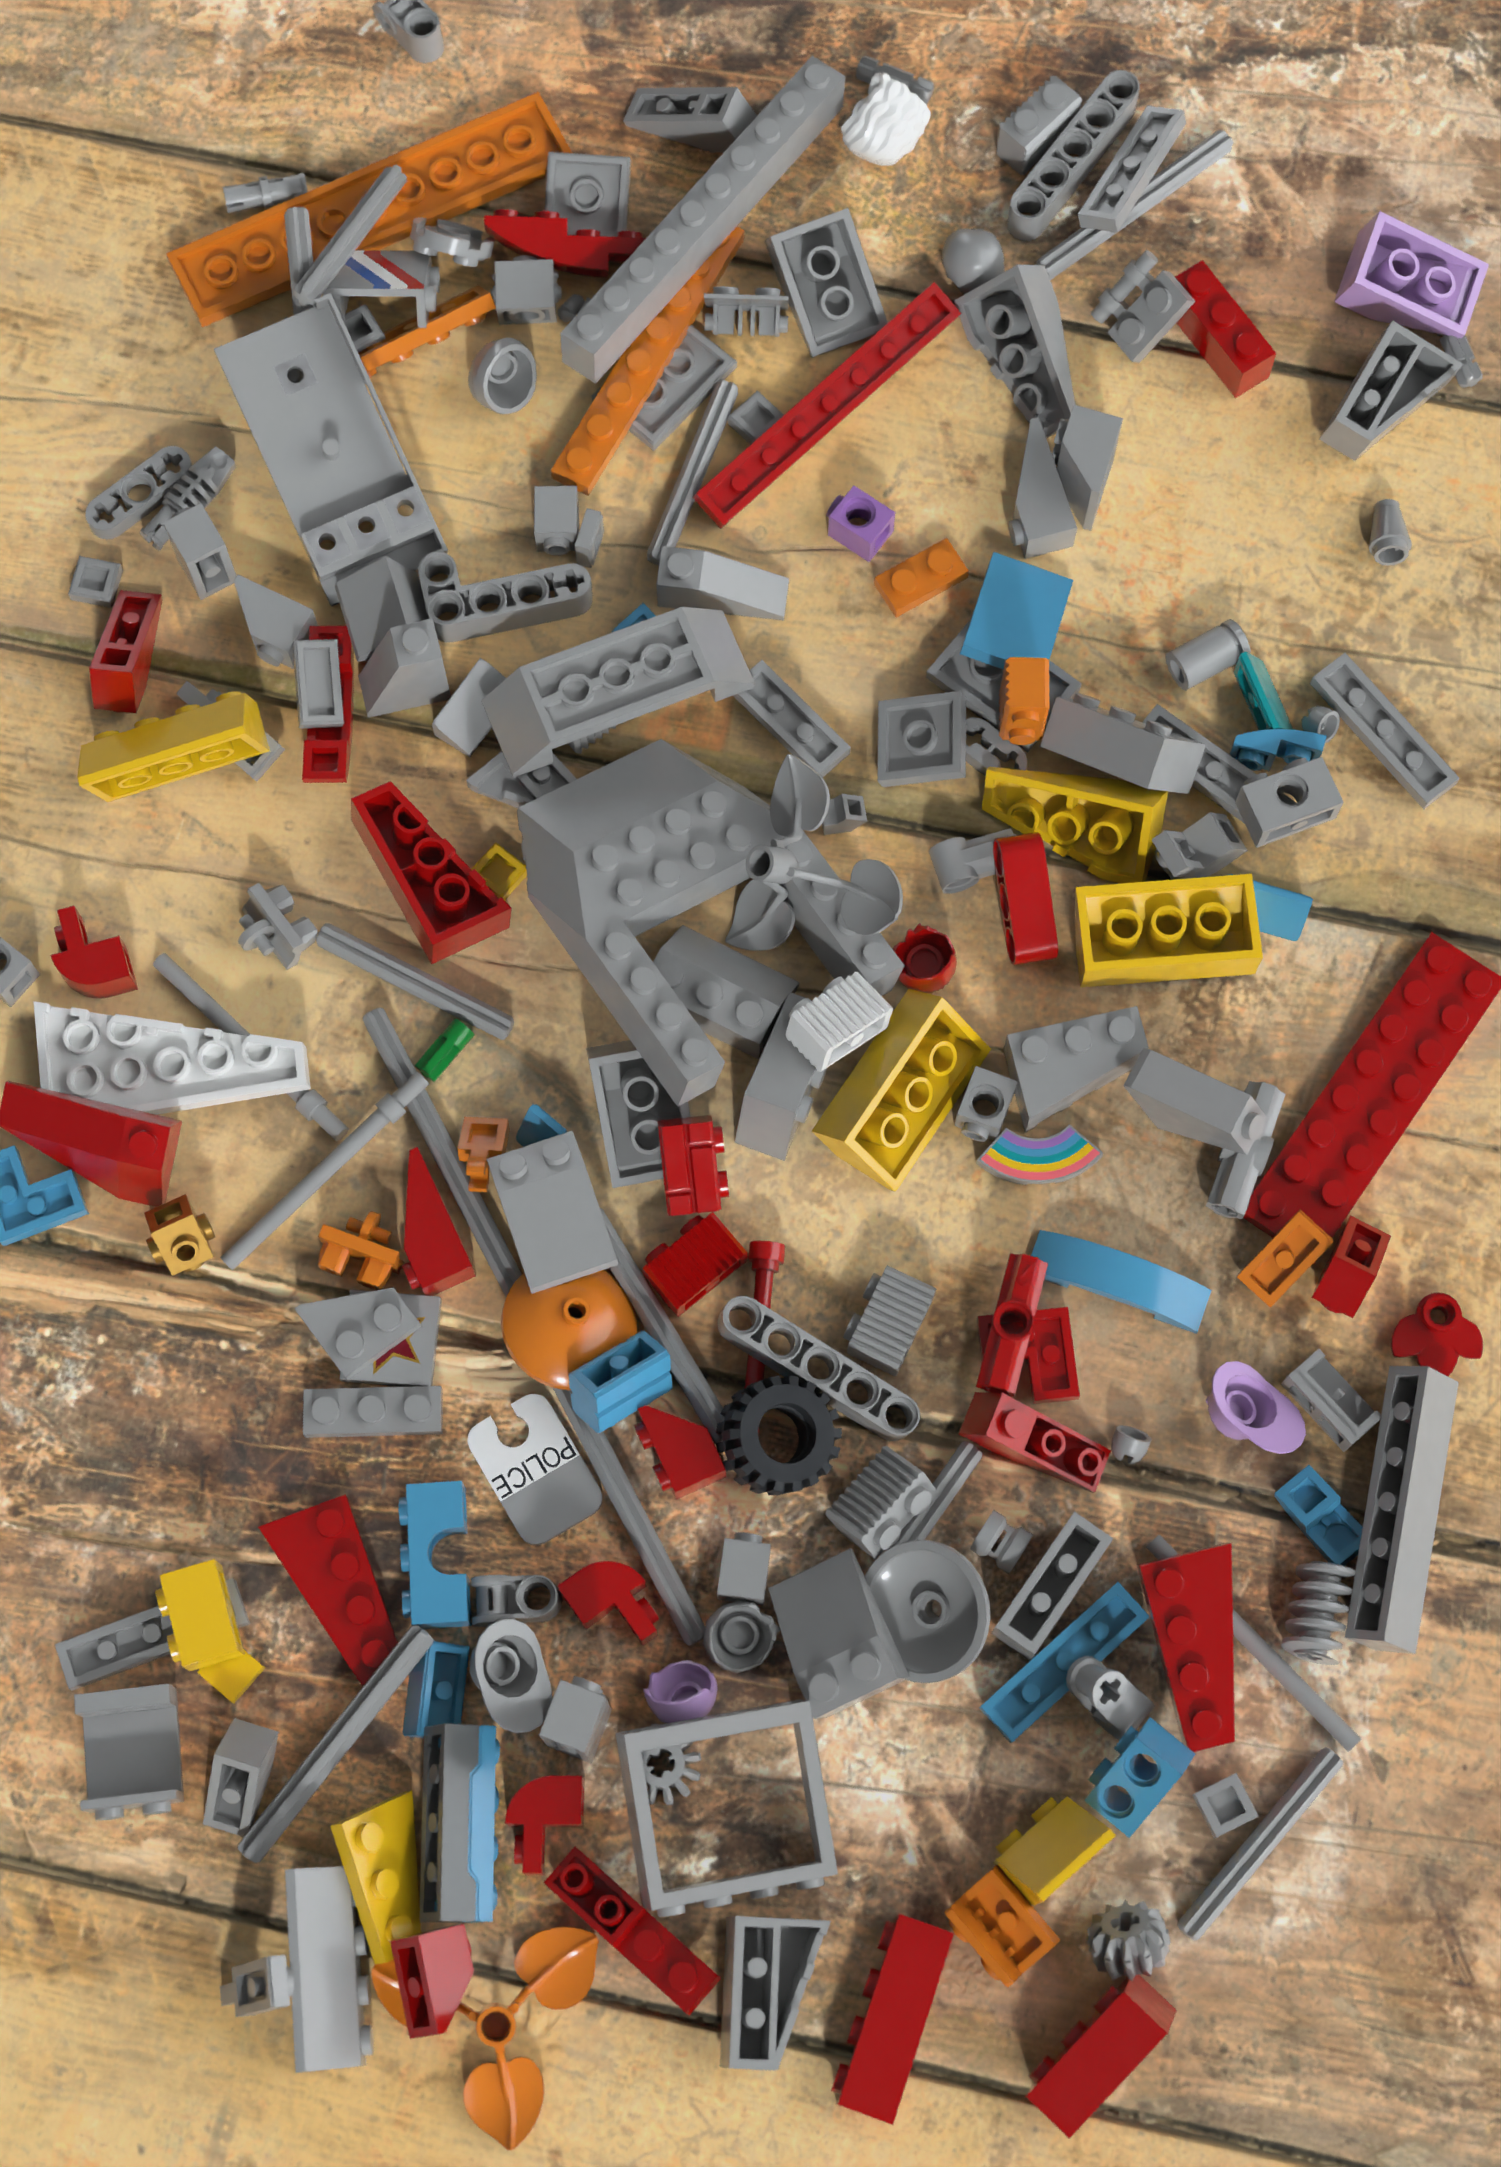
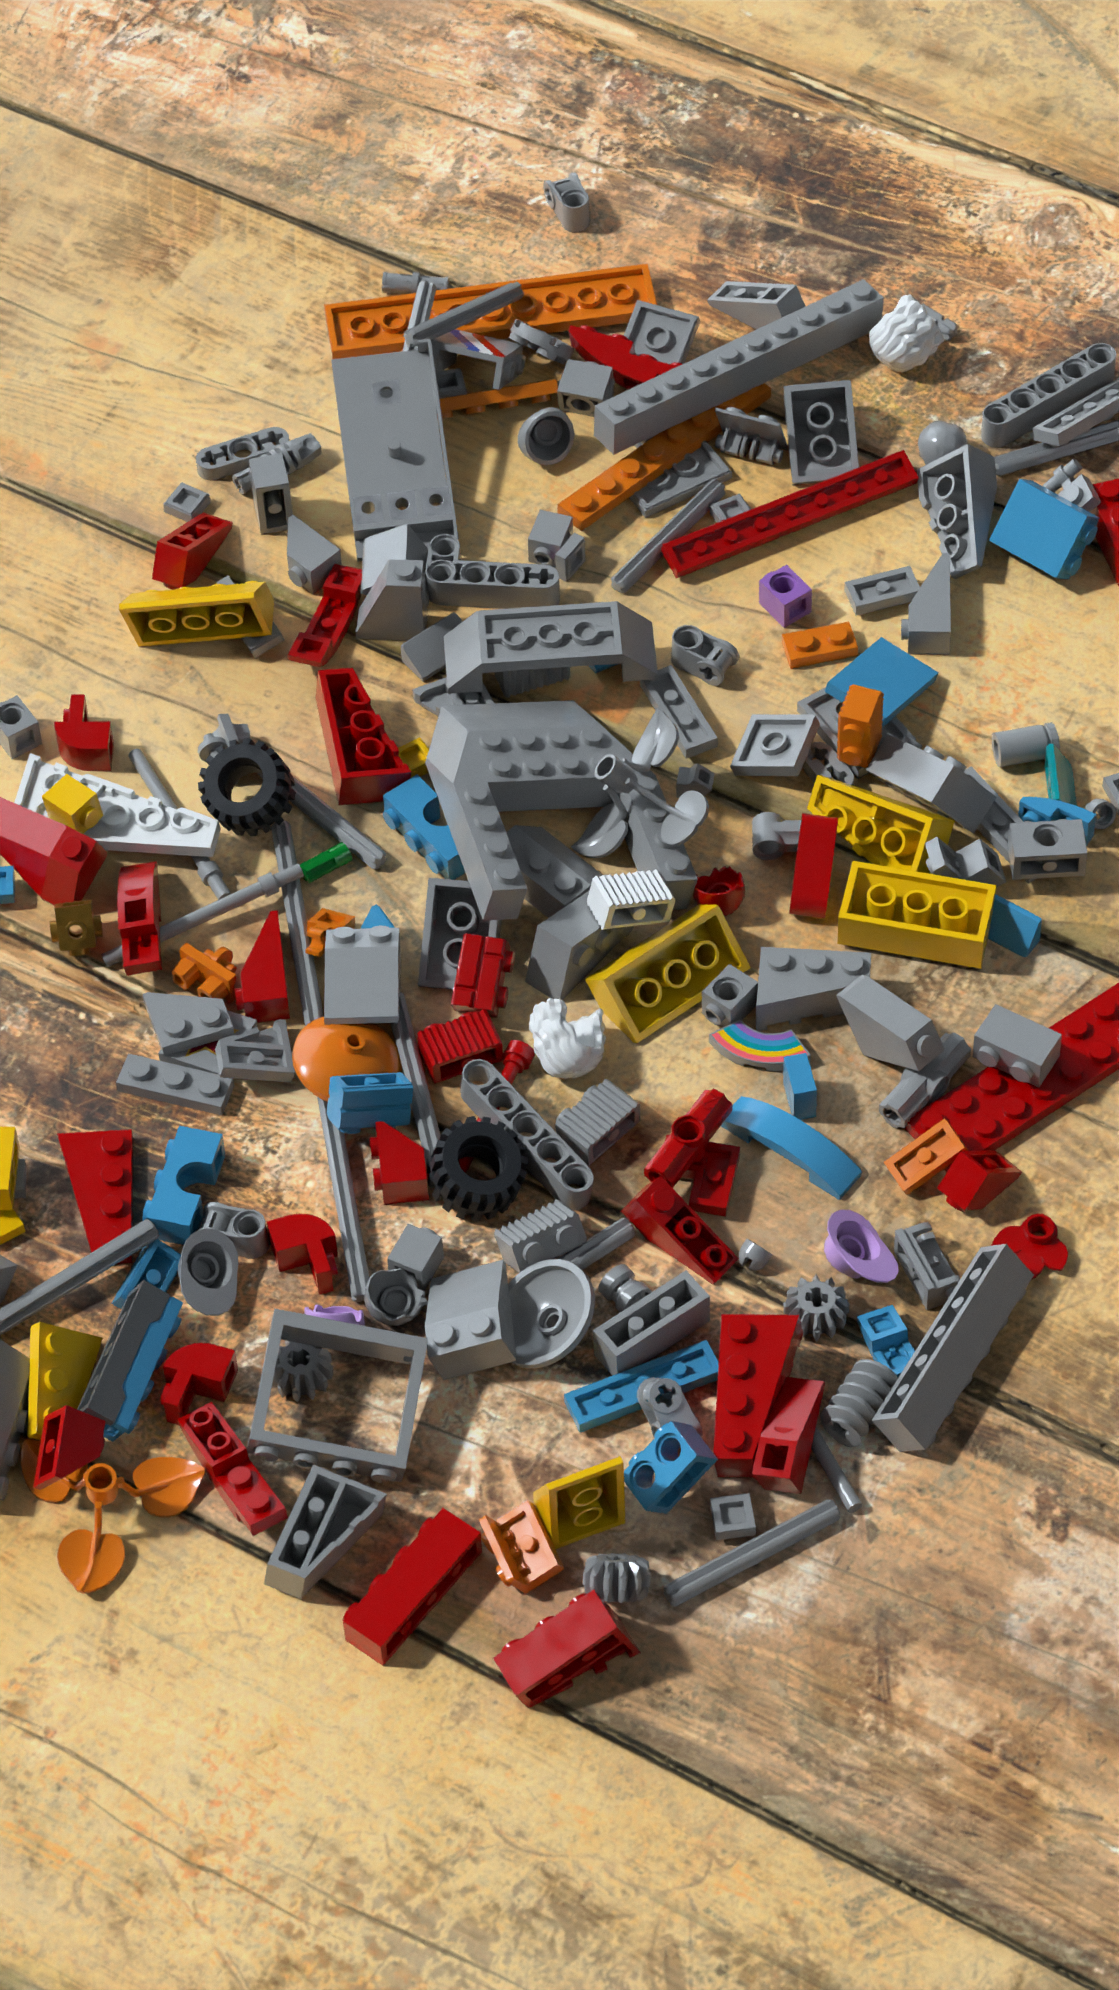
camera: 20 degrees right, 20 degrees down
(119, 1074) = (73, 804): none -> yellow brick
(252, 1199) = (139, 918): none -> red slope
(286, 998) = (228, 768): none -> black tyre
(317, 683) = (324, 598): light grey tile -> none
(460, 1348) = (257, 1055): none -> light grey wing
(521, 953) = (411, 811): none -> dark azure arch
(542, 1480) = (285, 1165): piece -> none
(576, 1719) = (242, 1303): light grey brick -> none
(719, 583) = (656, 604): light grey slope -> none
(795, 634) = (701, 654): none -> light grey piece
(825, 1225) = (565, 1047): none -> white hair
(971, 483) = (881, 590): none -> light grey plate
(1036, 124) = (1025, 363): light grey brick -> none
(1084, 459) = (977, 589): light grey slope -> none
(1109, 1204) = (800, 1086): none -> dark azure piece
(1139, 354) = (1045, 529): none -> dark azure brick
(1234, 1483) = (820, 1306): none -> light grey gear
(1259, 1684) = (788, 1436): none -> red slope
(1344, 1084) = (1016, 1046): none -> light grey brick

